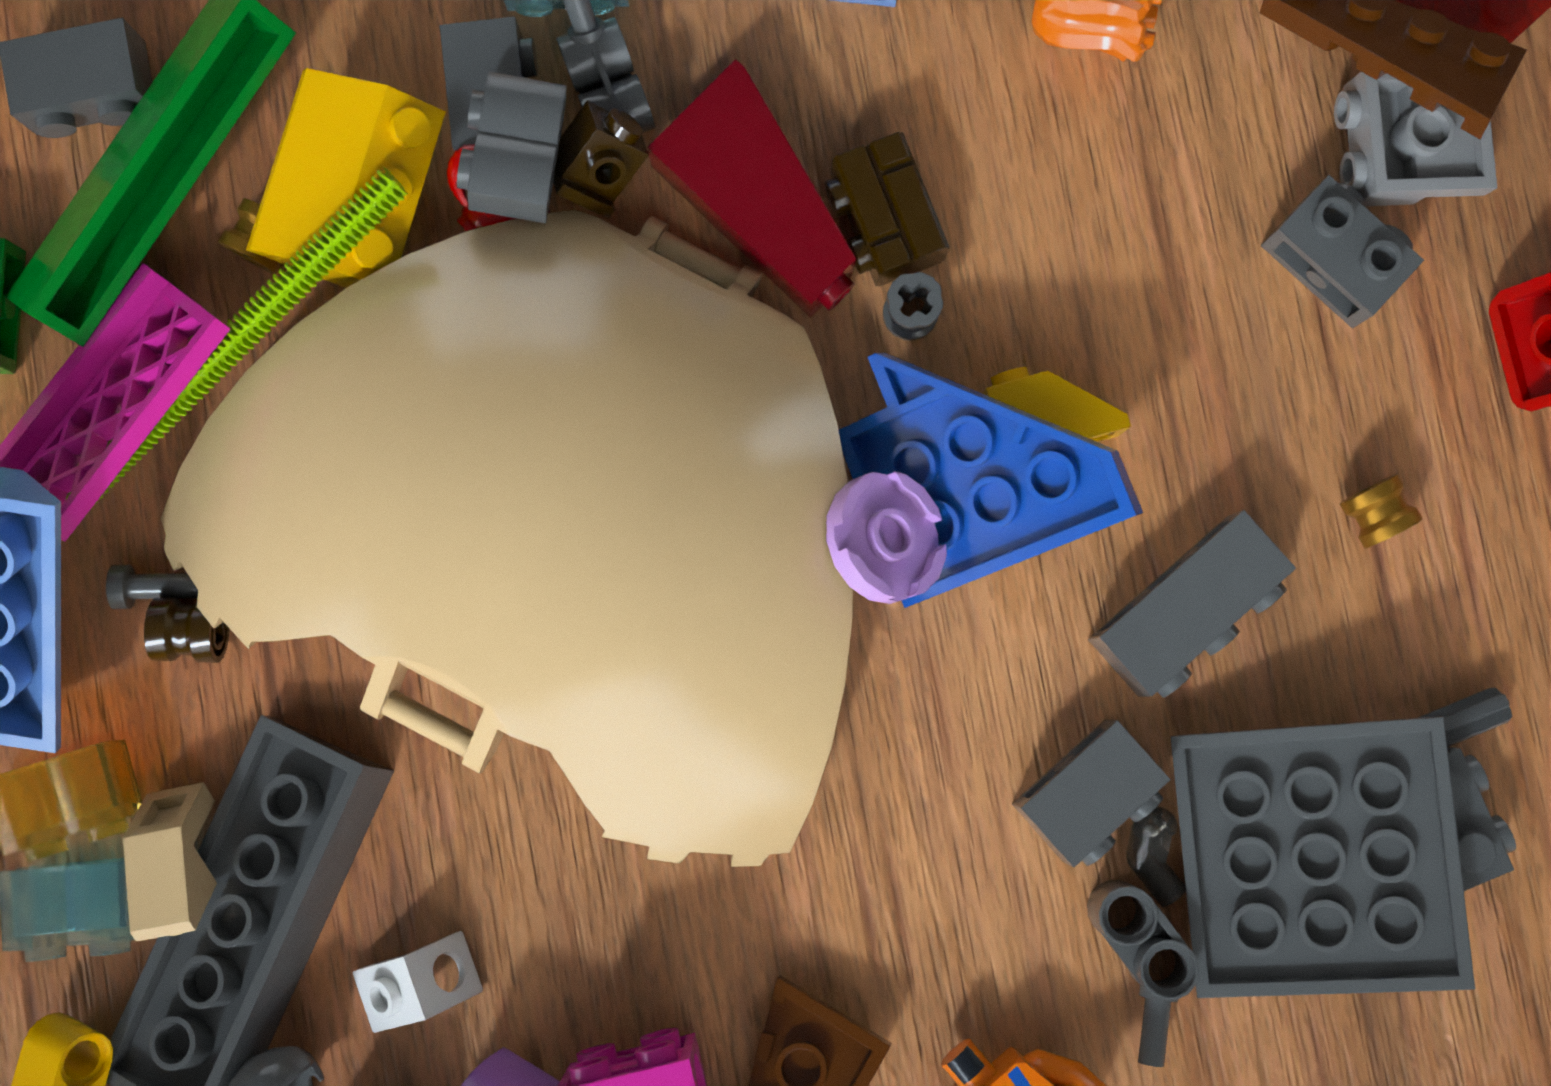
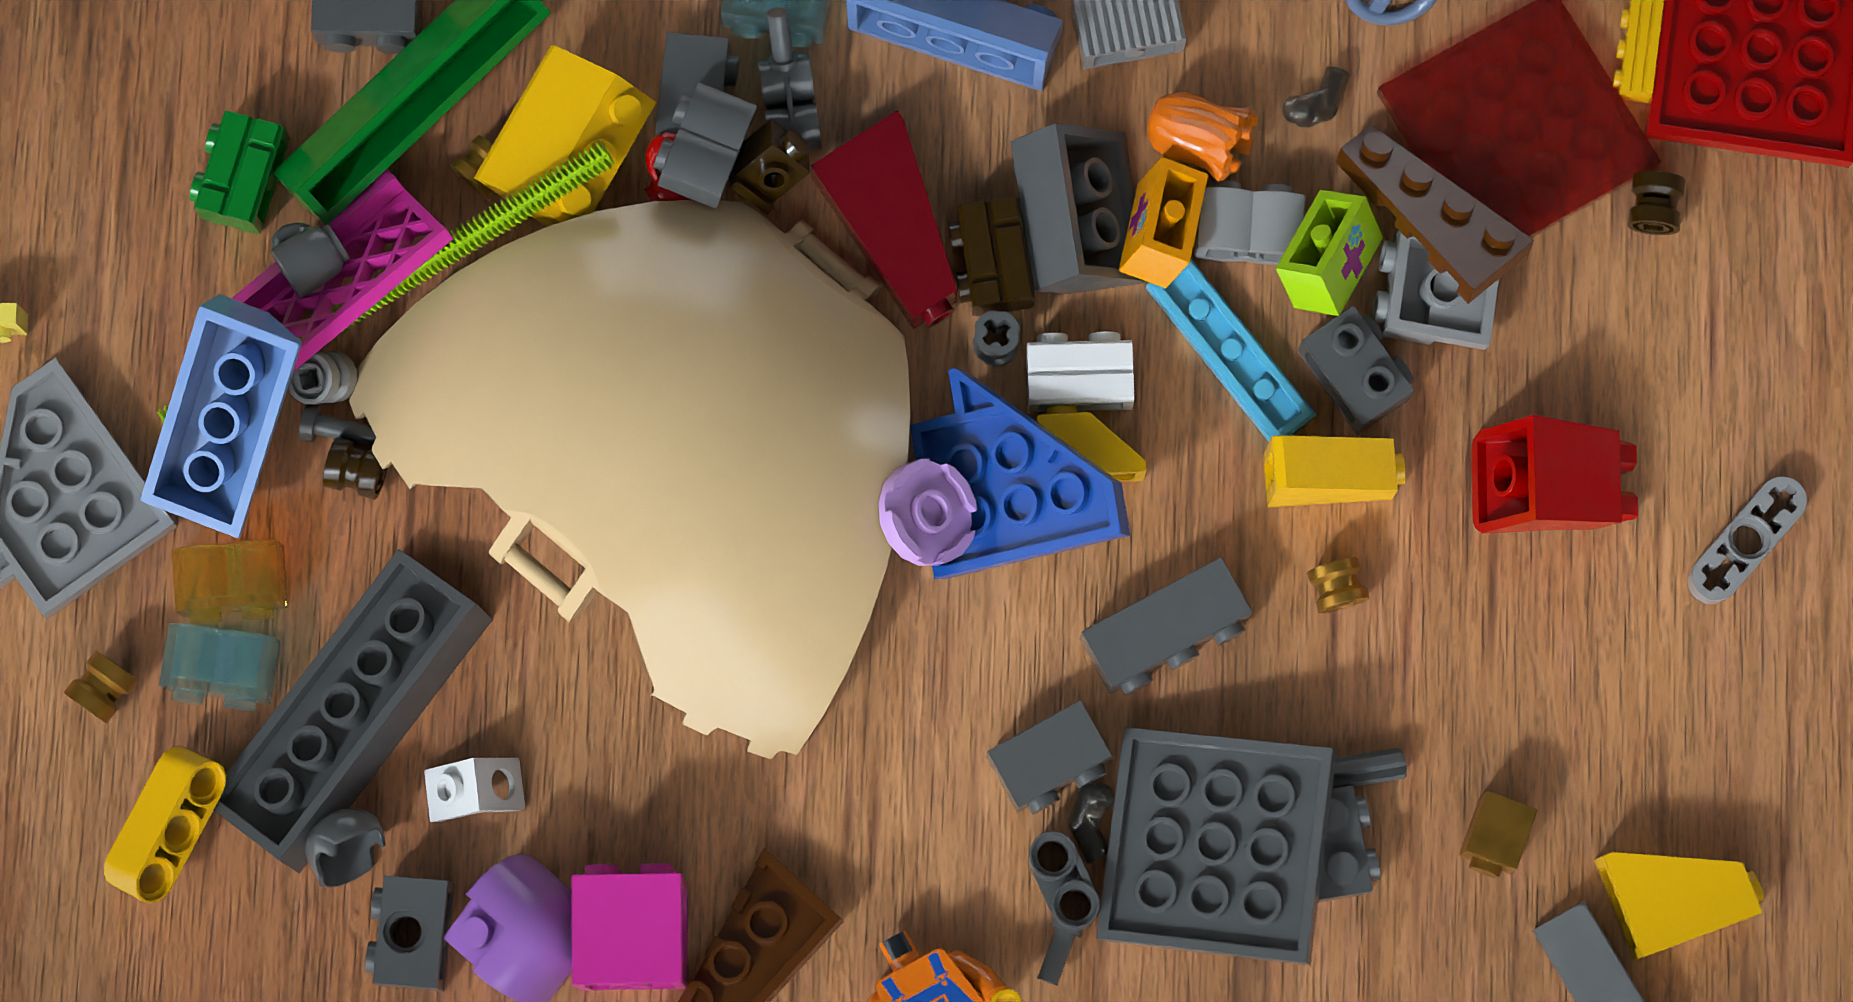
camera: 15 degrees right, 5 degrees down
(62, 390) = (308, 255): none -> dark grey piece
(120, 531) = (334, 377): none -> light grey wheel
(163, 870) = (300, 646): tan slope -> none
(972, 132) = (1074, 206): none -> dark grey slope
(1021, 326) = (1080, 373): none -> white brick
(1082, 124) = (1163, 222): none -> light orange brick
(1177, 107) = (1247, 223): none -> light grey brick
(1186, 262) = (1233, 353): none -> medium azure tile
(1286, 117) = (1329, 252): none -> lime brick
(1341, 377) = (1330, 470): none -> yellow slope

